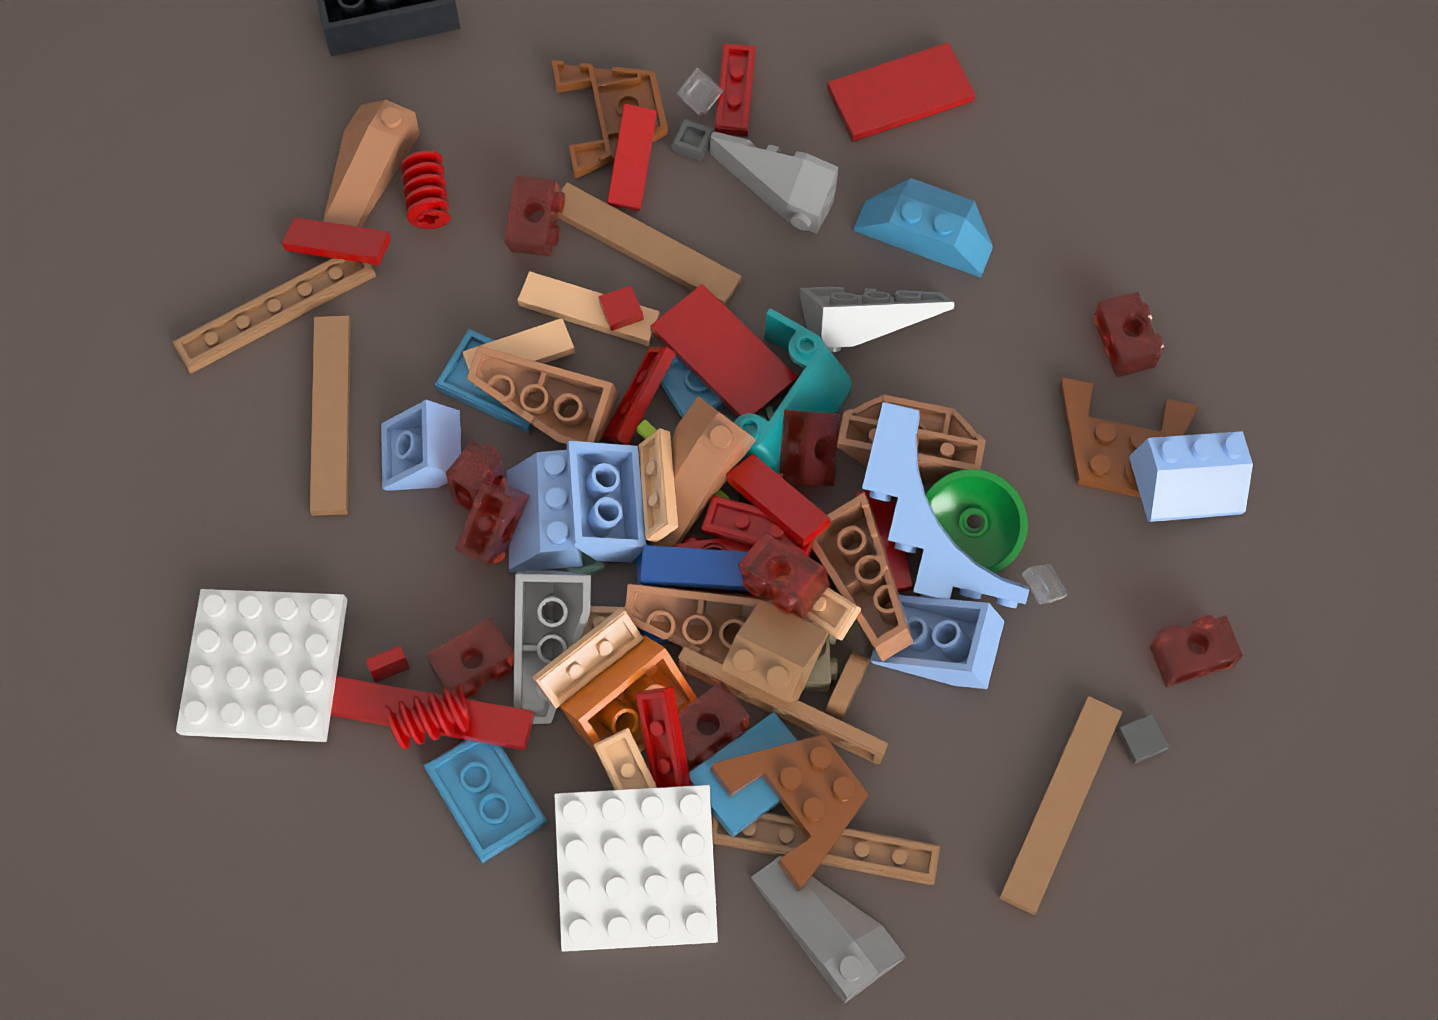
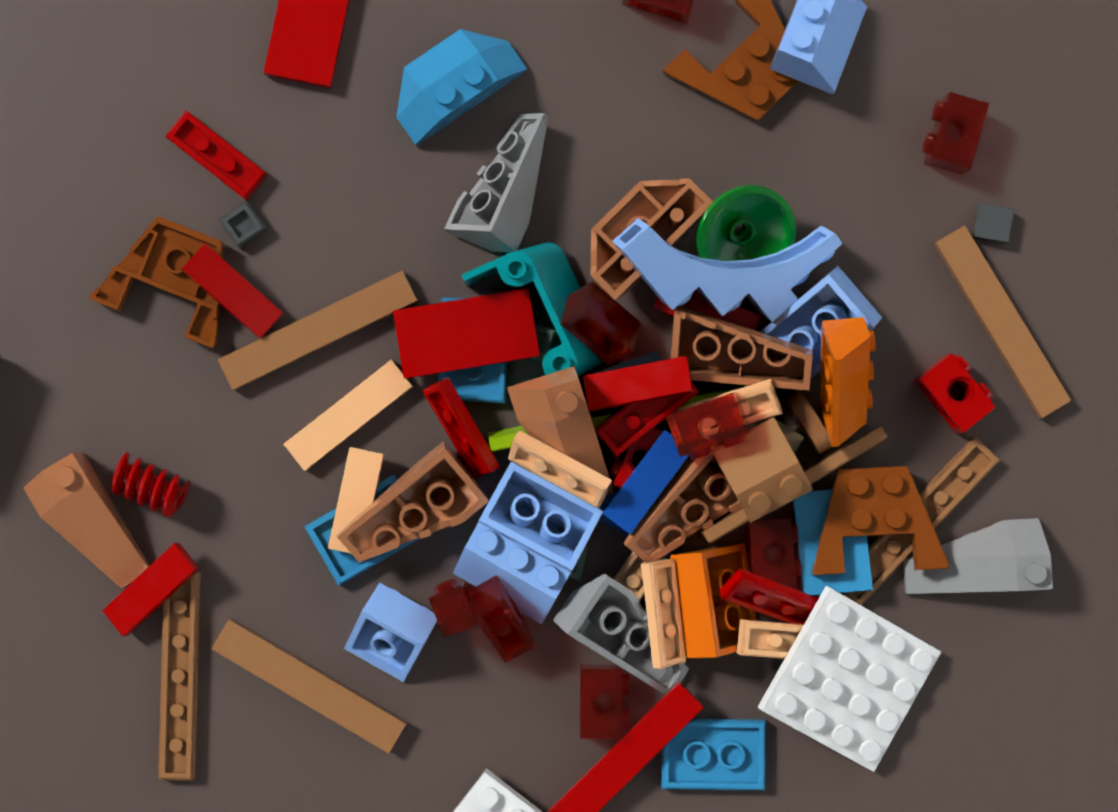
camera: 55 degrees left, 20 degrees up
(387, 664) = (562, 768): red tile -> none
(429, 717) = (639, 770): red piece -> none
(528, 197) = (244, 429): clear red brick -> none
(621, 308) = (369, 391): red tile -> none
(700, 92) = (202, 189): clear tile -> none
(794, 186) = (355, 173): light grey wedge -> none
(908, 676) = (845, 376): none -> orange slope
(967, 775) = (936, 385): none -> red brick
(1044, 584) = (827, 211): clear tile -> none

